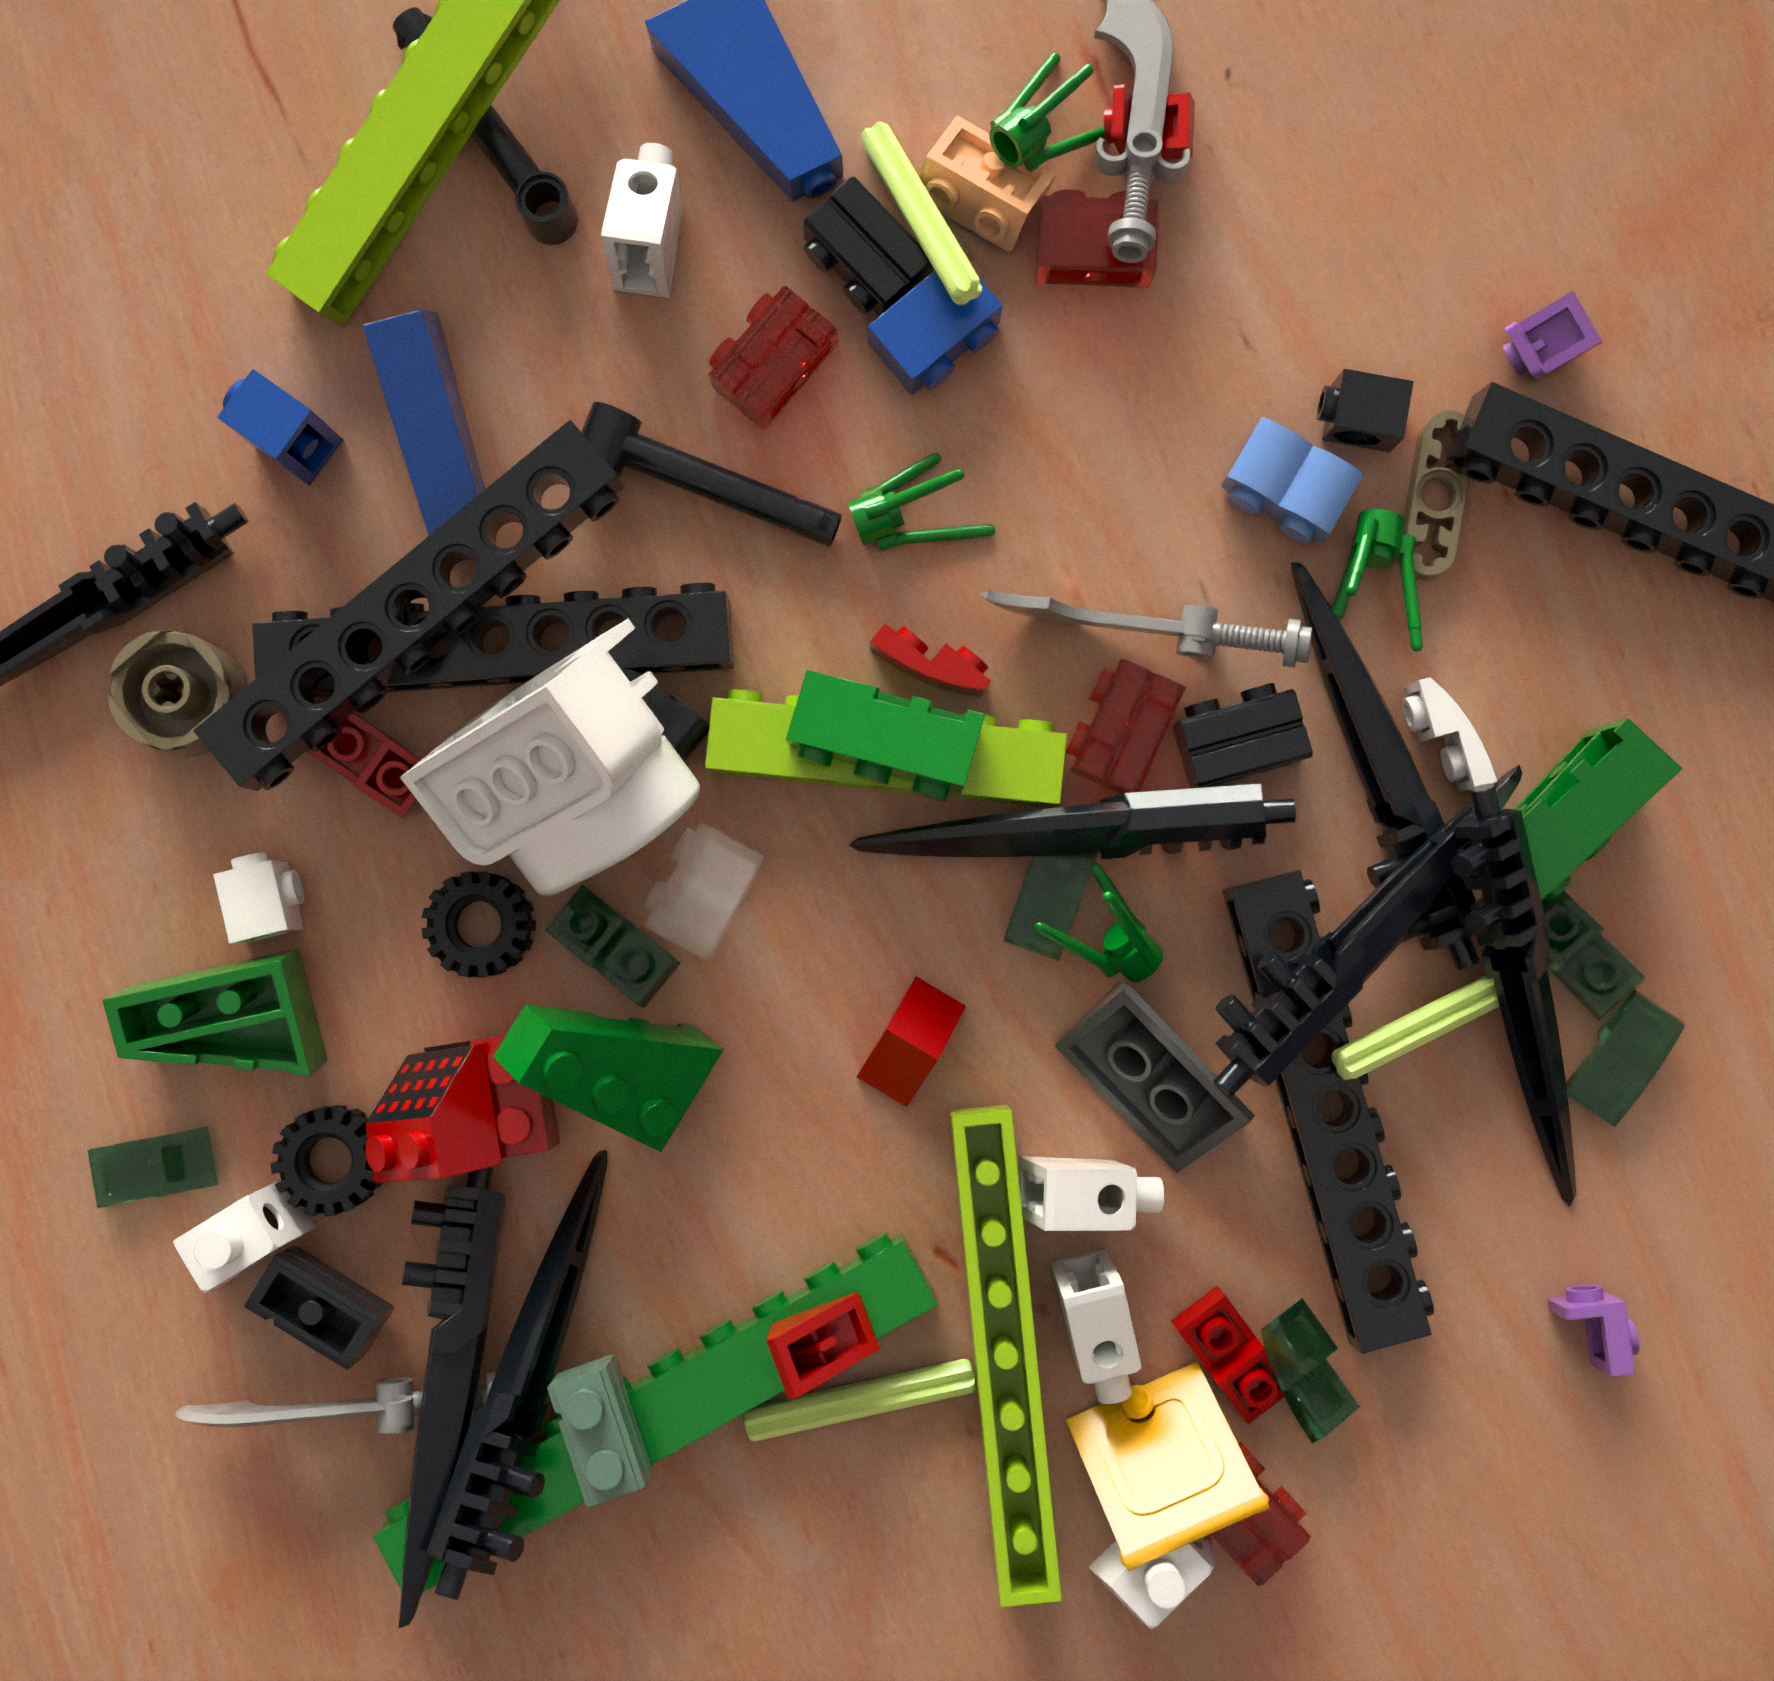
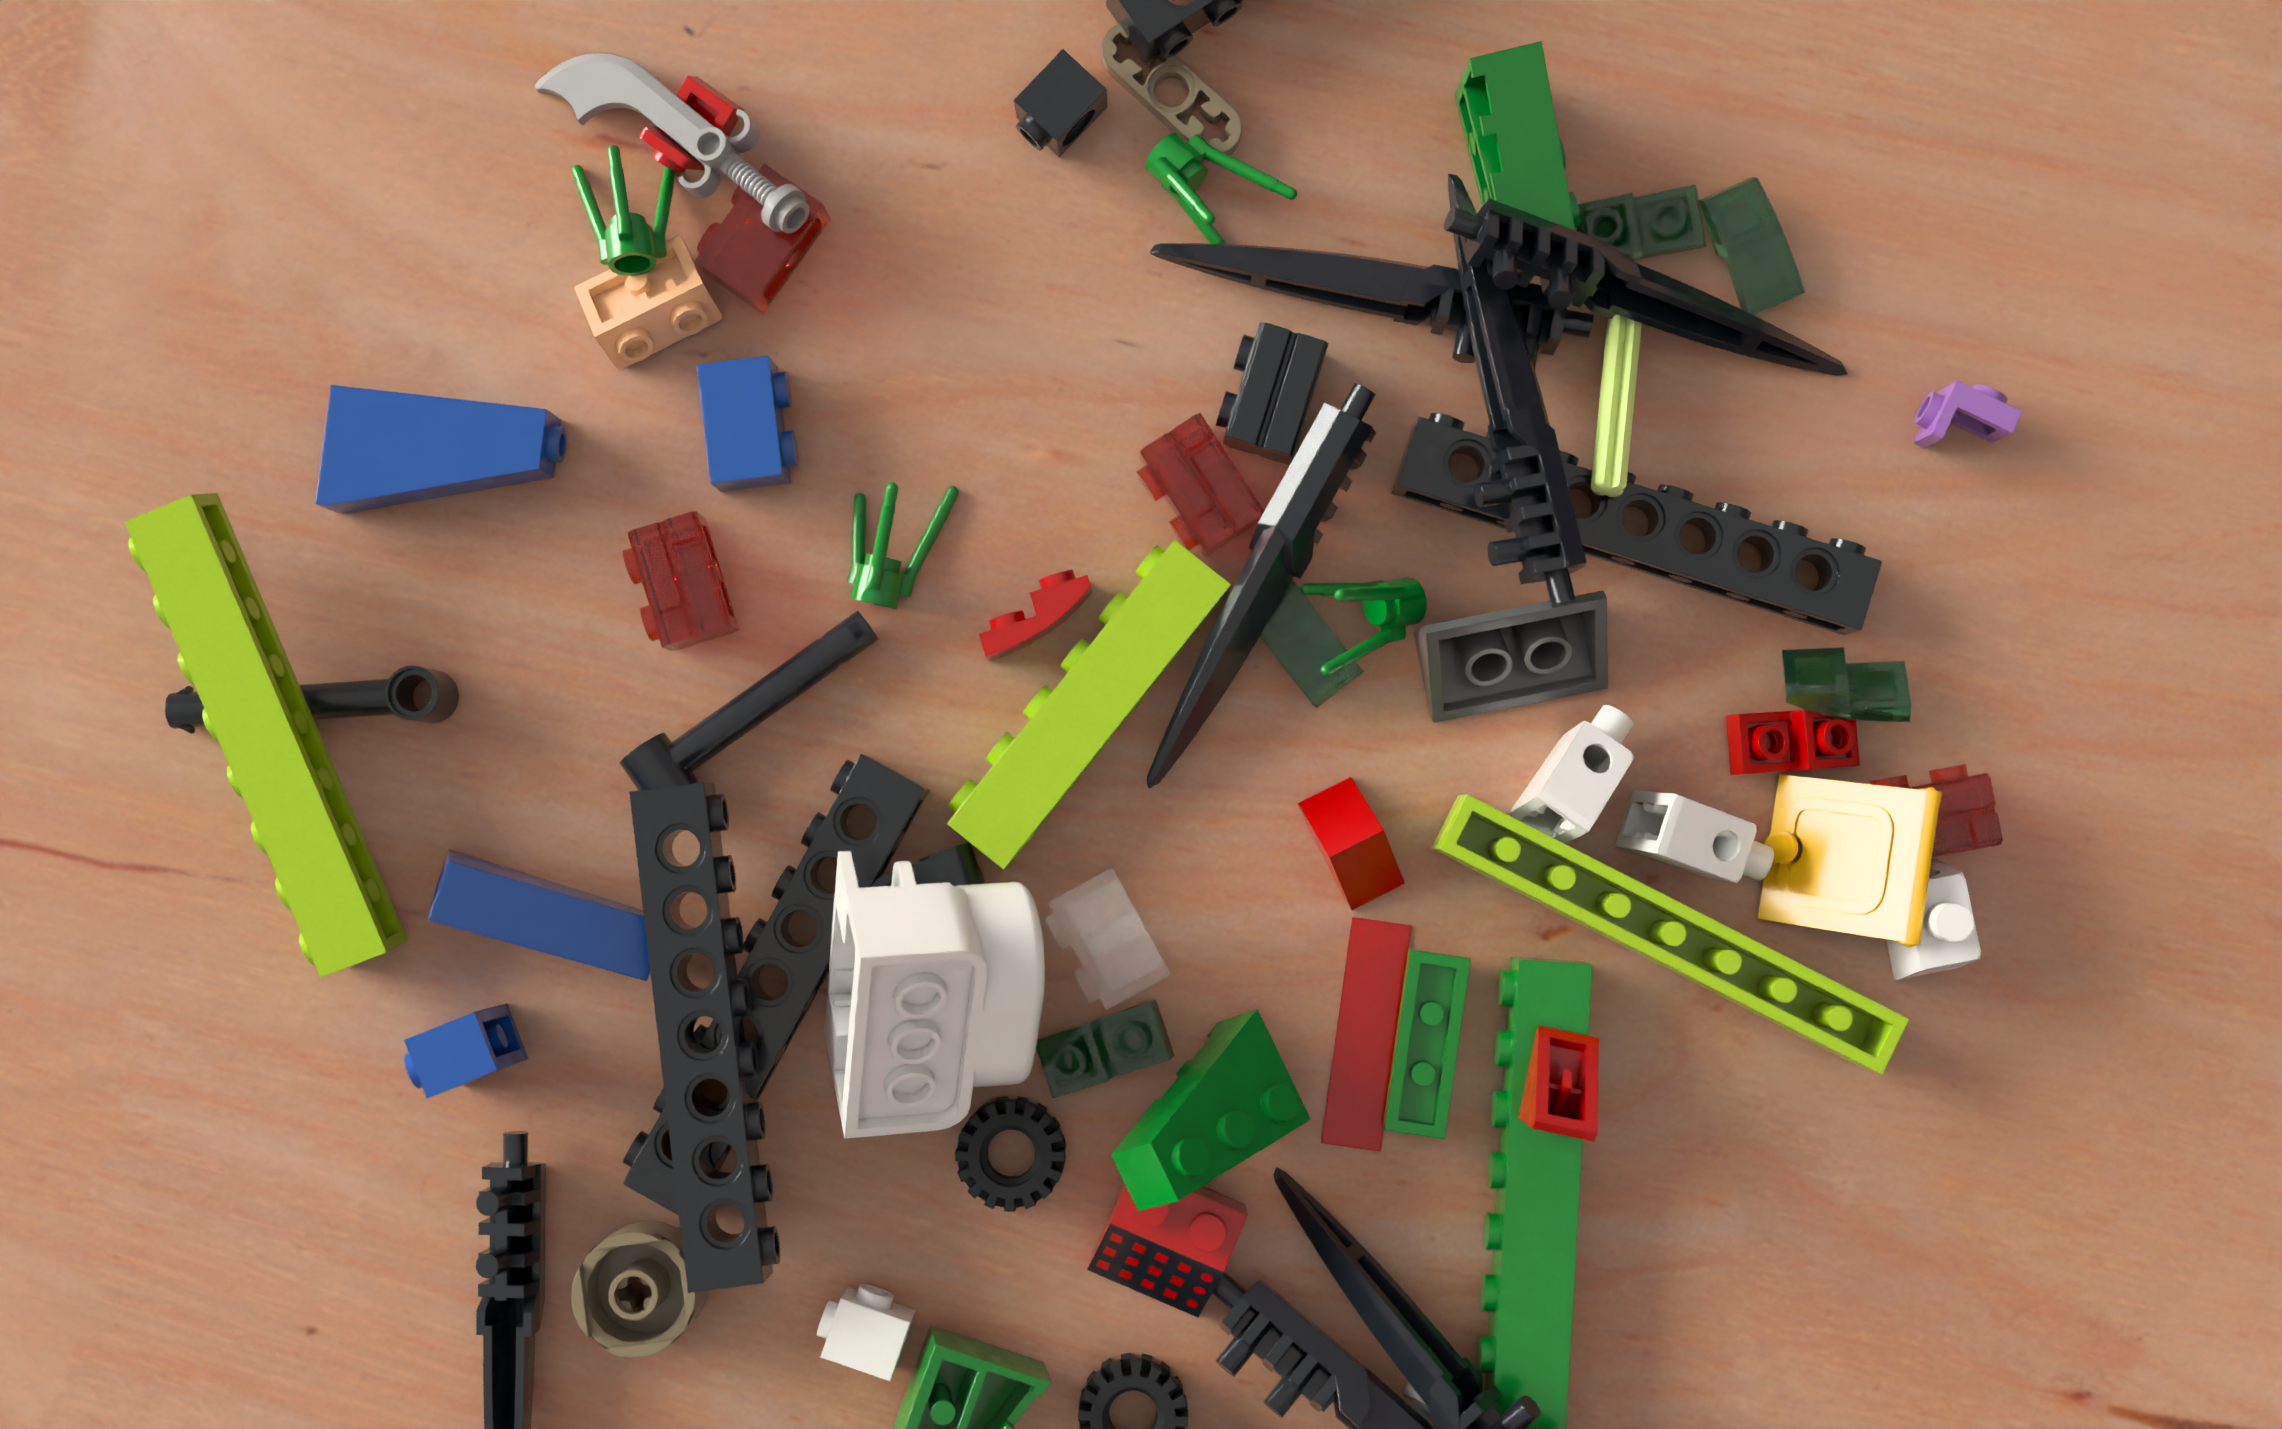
camera: 55 degrees left, 0 degrees up
(371, 763) = (812, 1156): red slope -> none
(434, 1118) = (1157, 1297): red slope -> none
(600, 1430) = (1517, 1322): sand green brick -> none
(643, 223) = (491, 617): white torso -> none
(762, 1154) = (1366, 1033): none -> red sticker
(785, 1209) = (1426, 1044): none -> green plate
(860, 1400) = (1630, 1083): yellowish green axle -> none
(865, 248) = (640, 441): black brick -> none
(883, 735) = (1078, 696): green wedge -> none
(921, 214) = (642, 373): yellowish green axle -> none
(1196, 632) = (1157, 372): light grey sword -> none
(1291, 482) = (1080, 207): medium blue brick -> none
(1437, 715) = (1359, 215): white slope -> none

